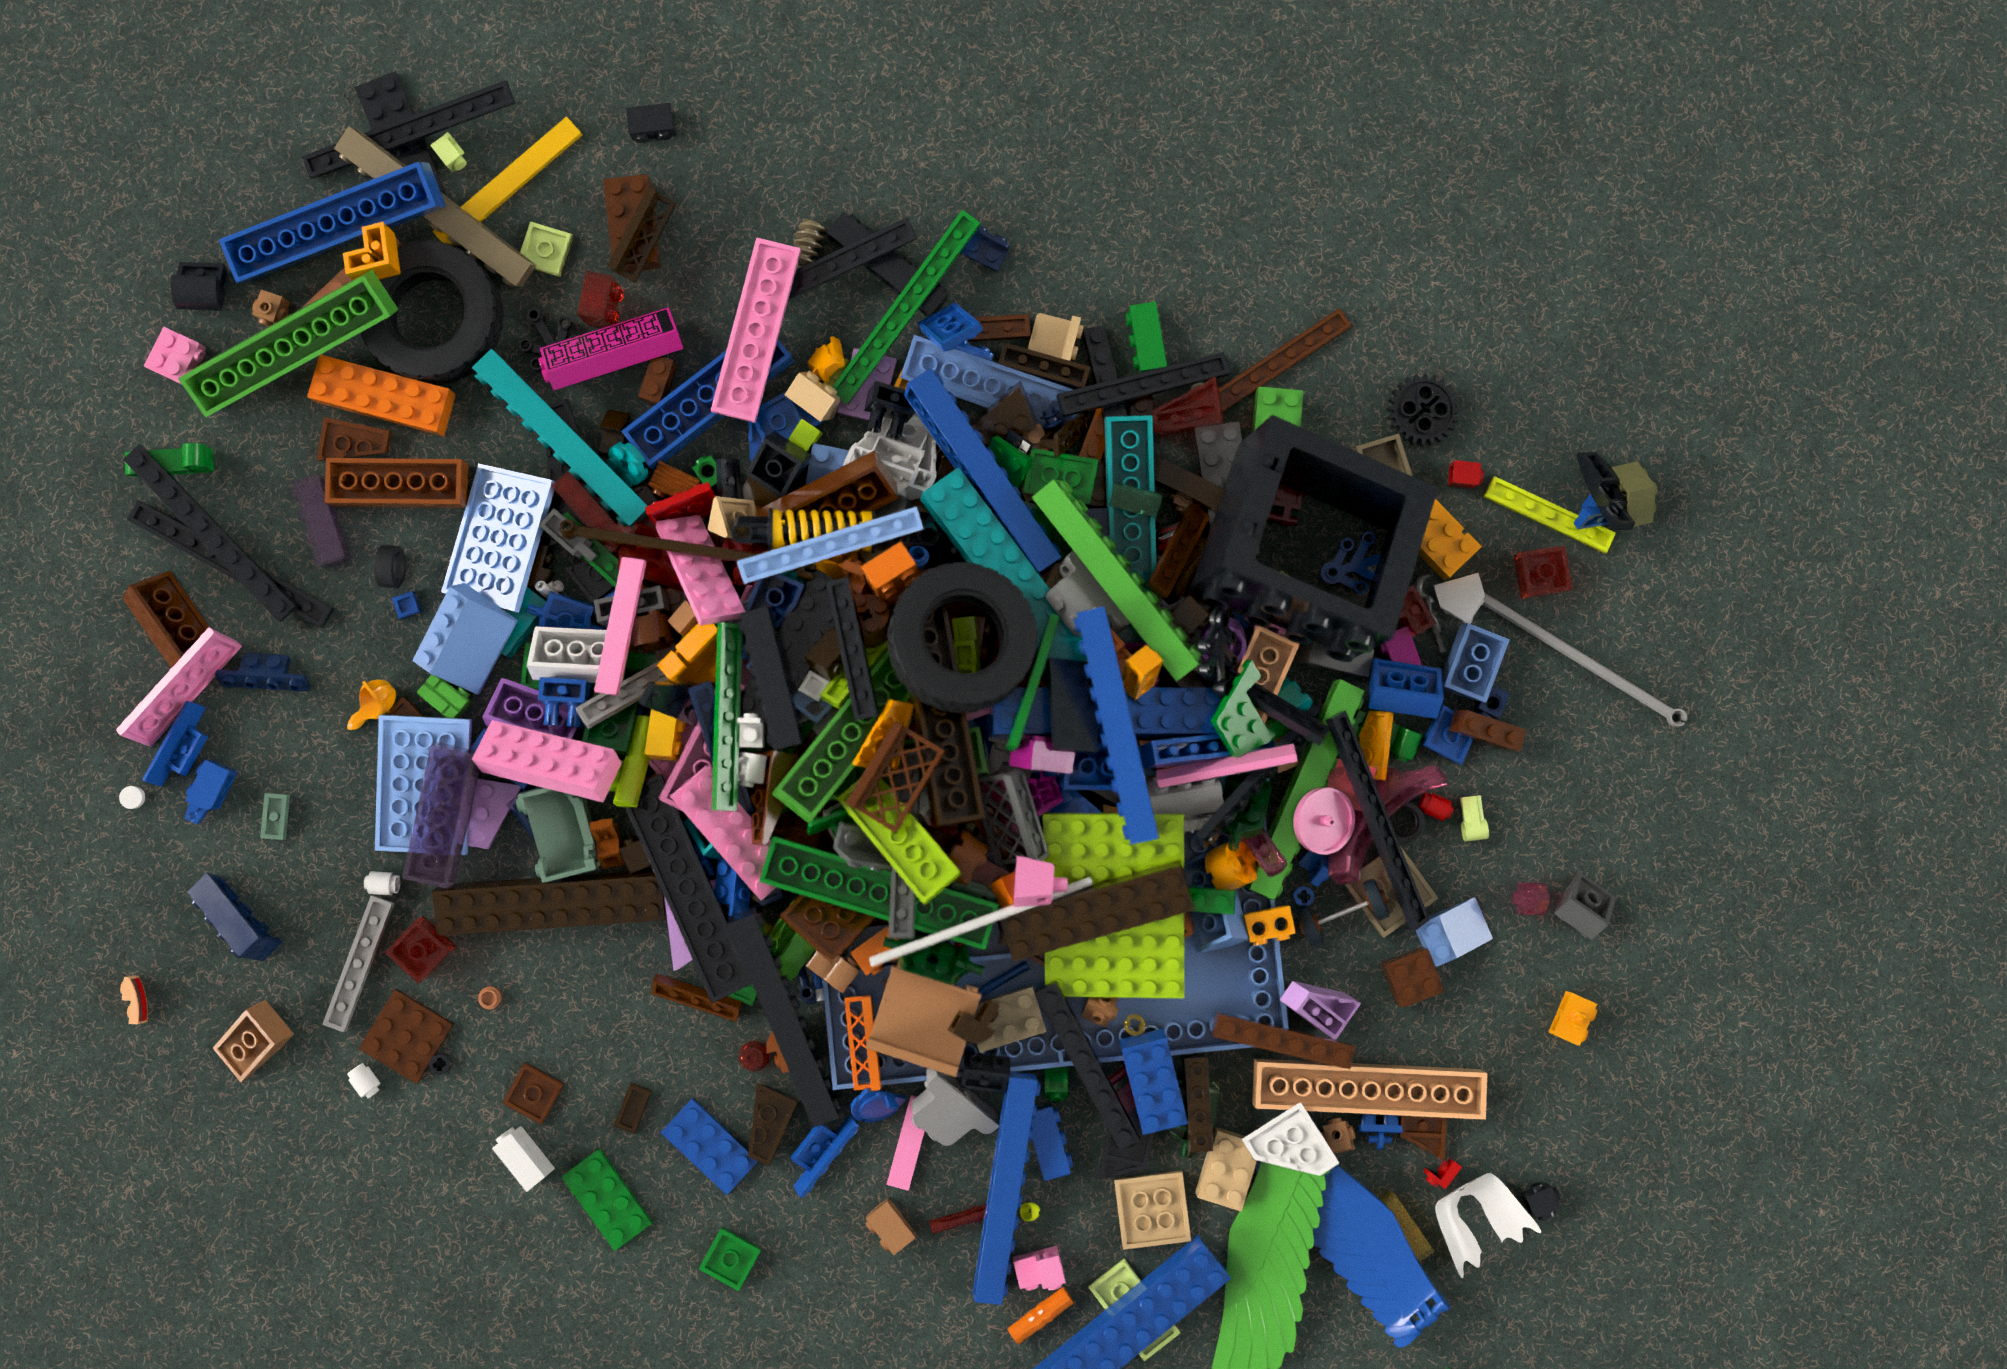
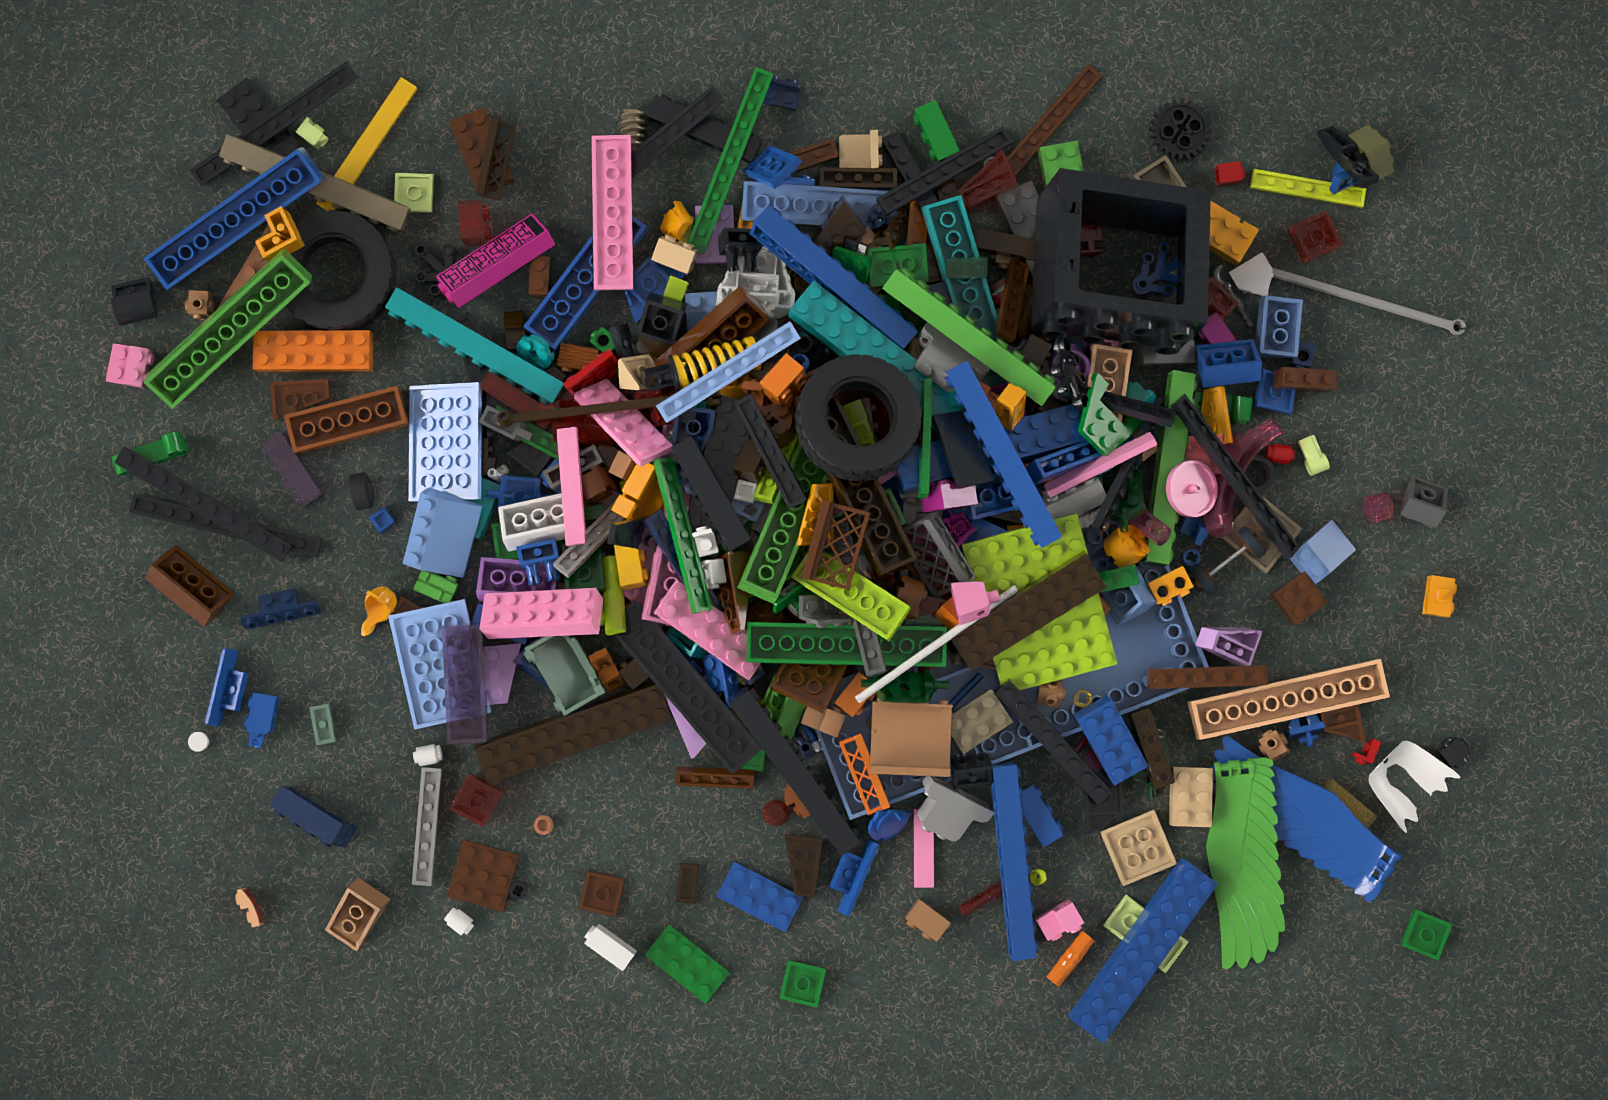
camera: 20 degrees left, 0 degrees up
(179, 685) = (214, 638): bright pink plate -> none
(651, 122) = (473, 63): black brick -> none
(975, 1029) = (956, 733): dark brown brick -> none
(1056, 1083) = (1030, 766): green bracket -> none
(1292, 1143) = (1237, 759): white plate -> none

